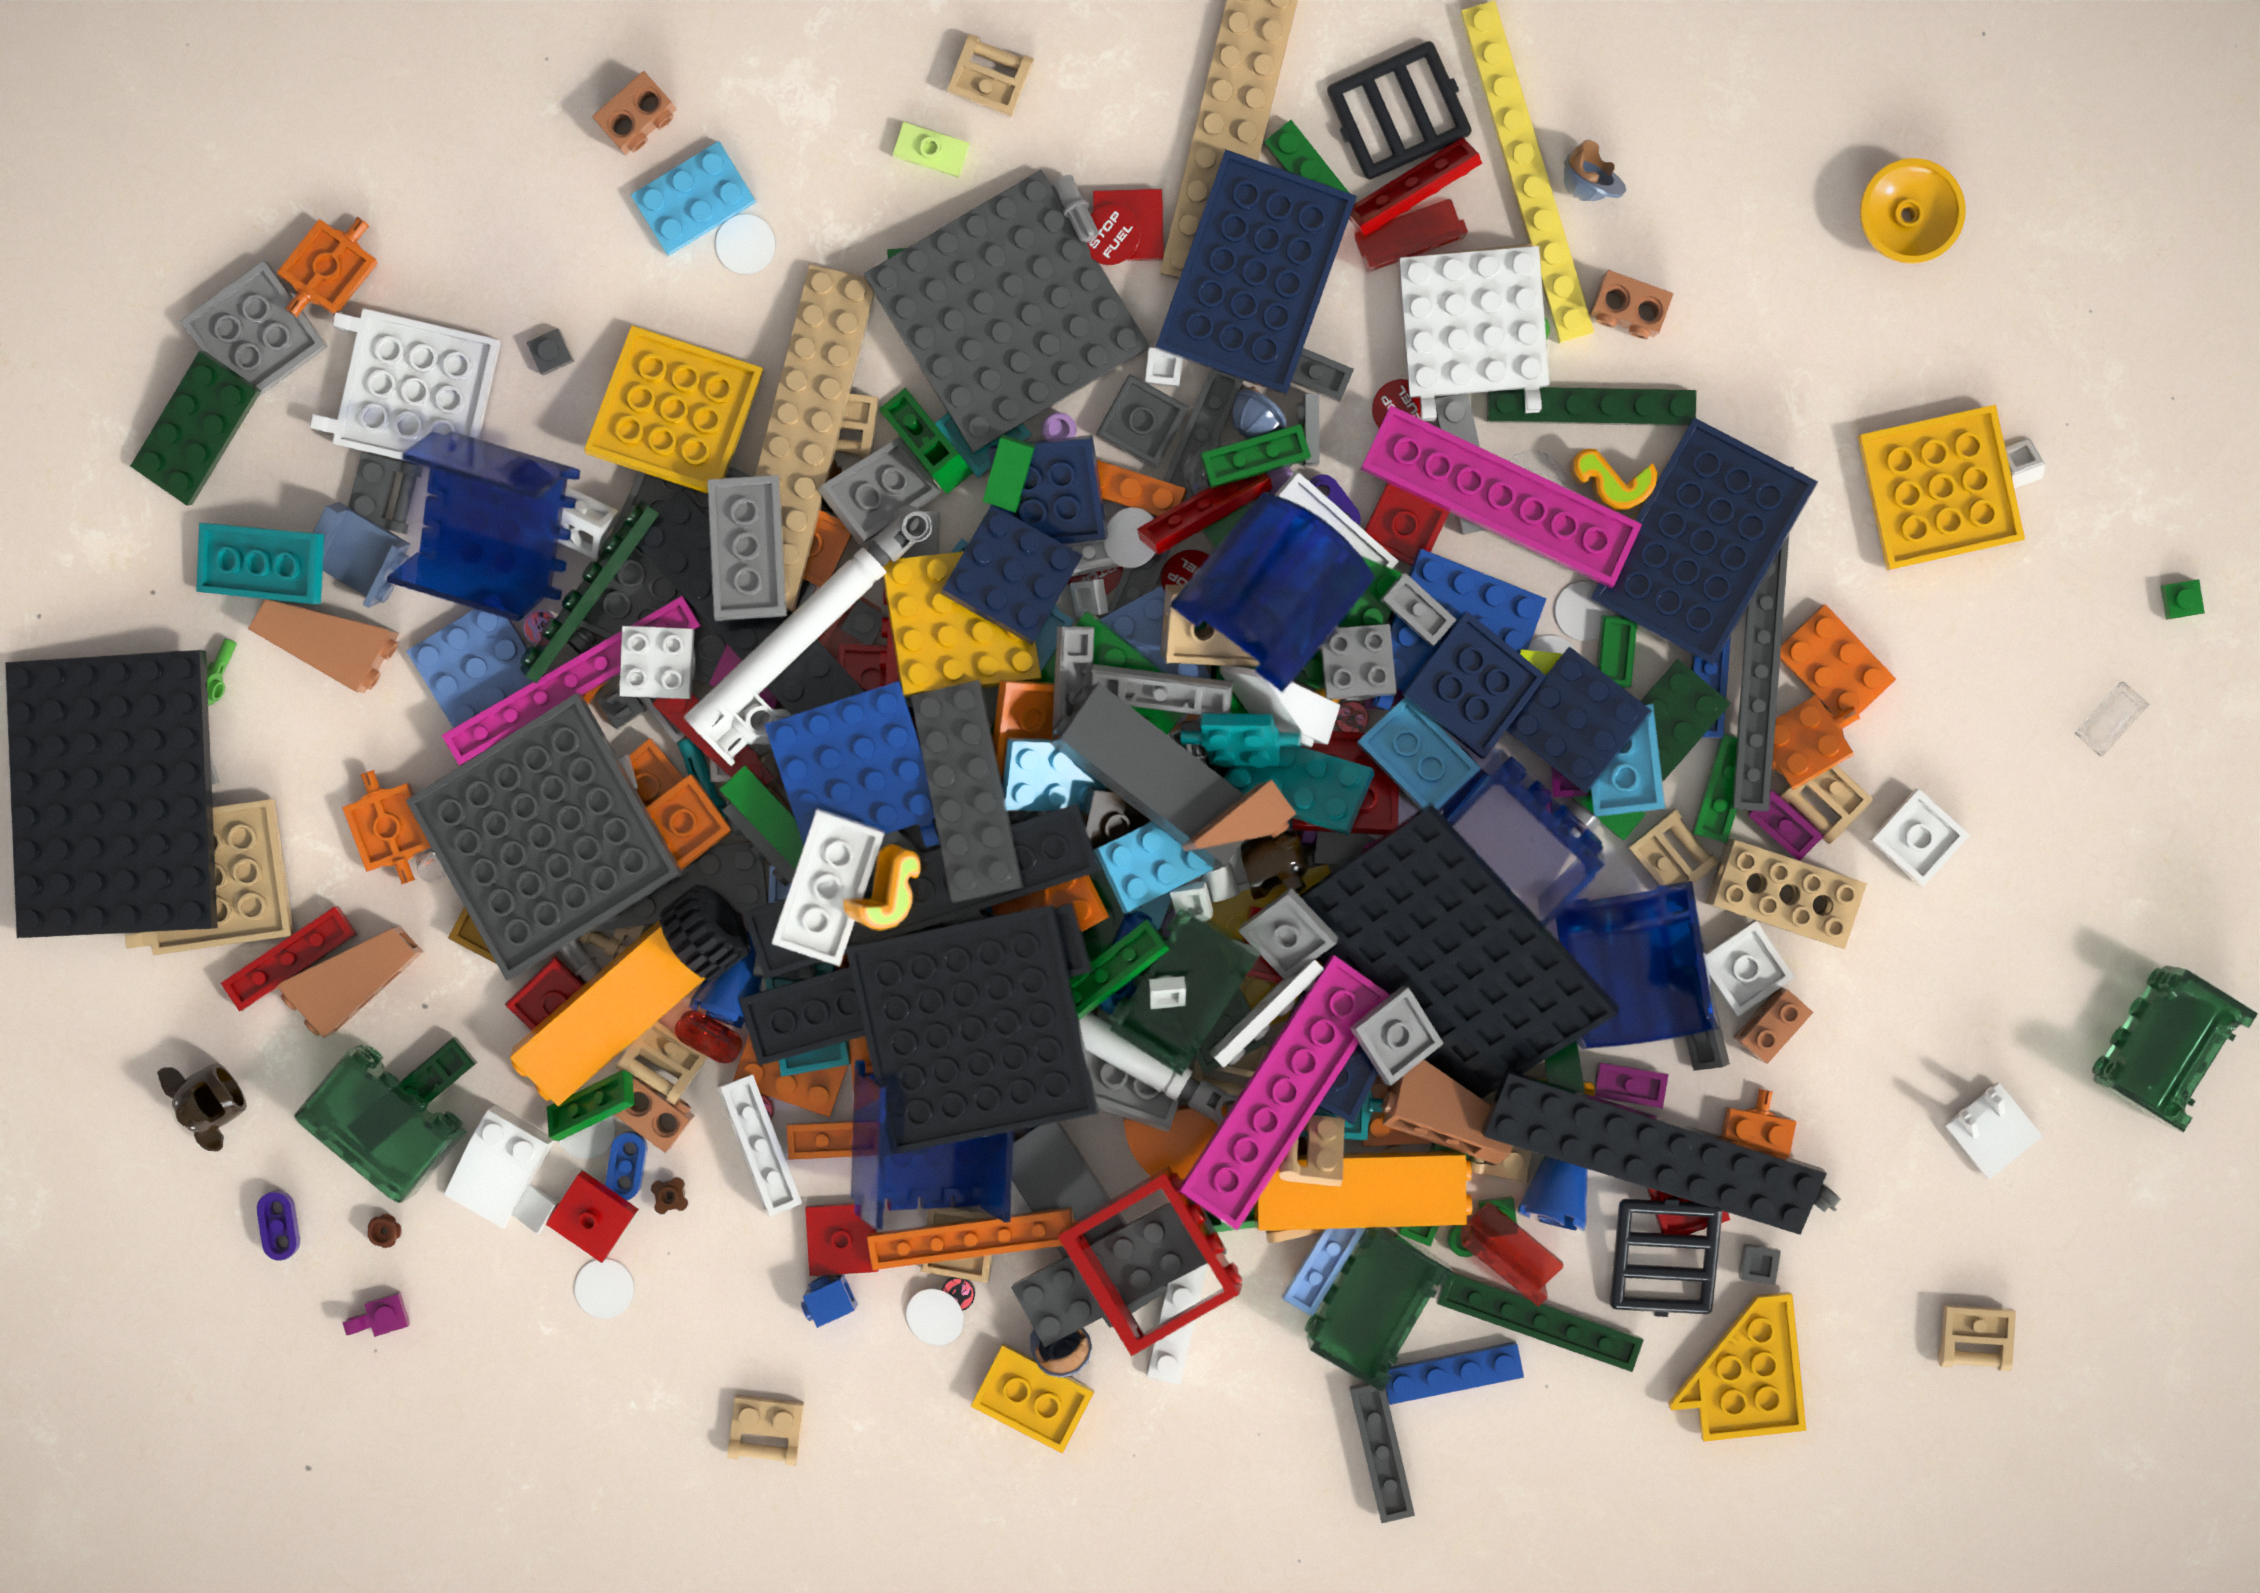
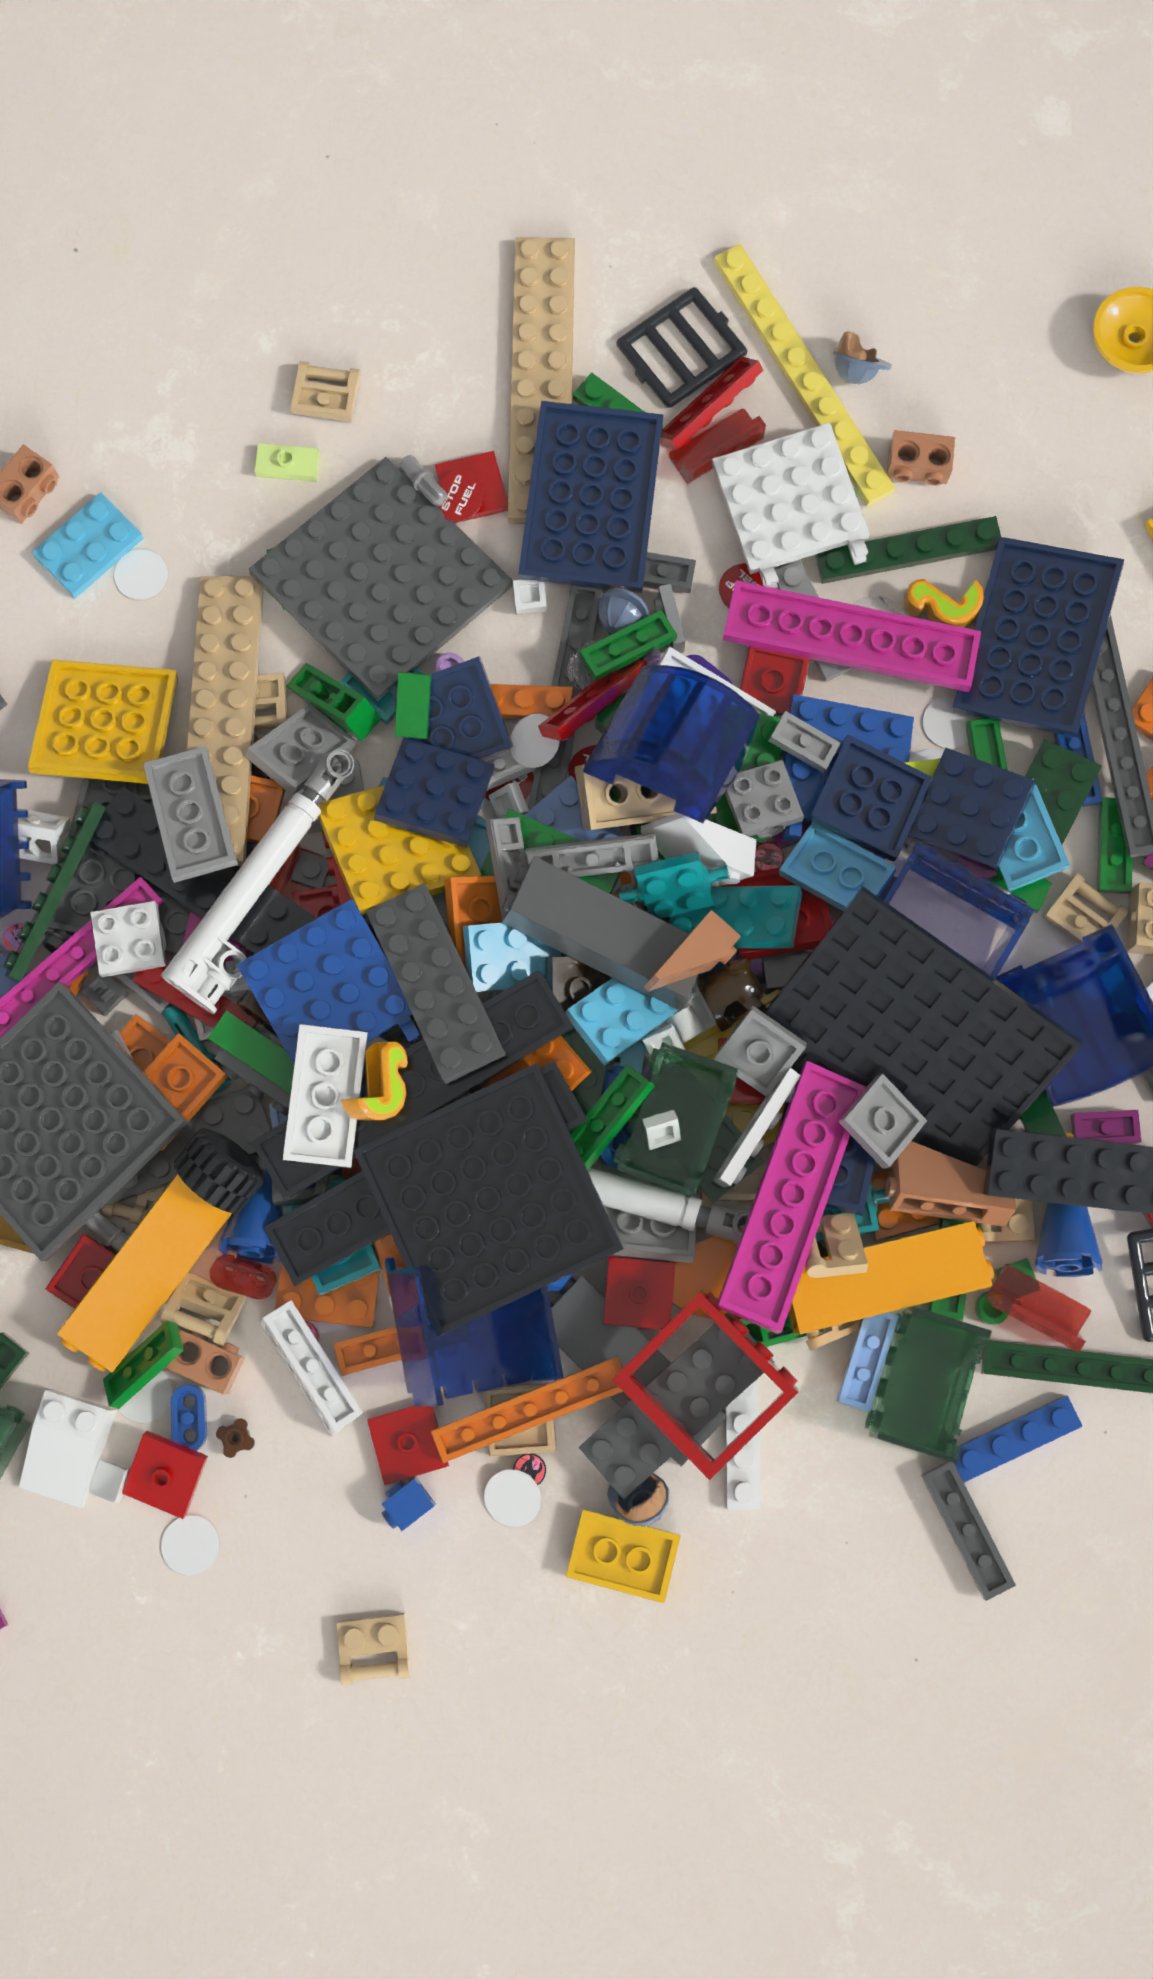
camera: 10 degrees left, 10 degrees down
(1107, 1150) = (639, 1293): none -> red plate
(1142, 421) = (521, 644): dark grey plate -> none

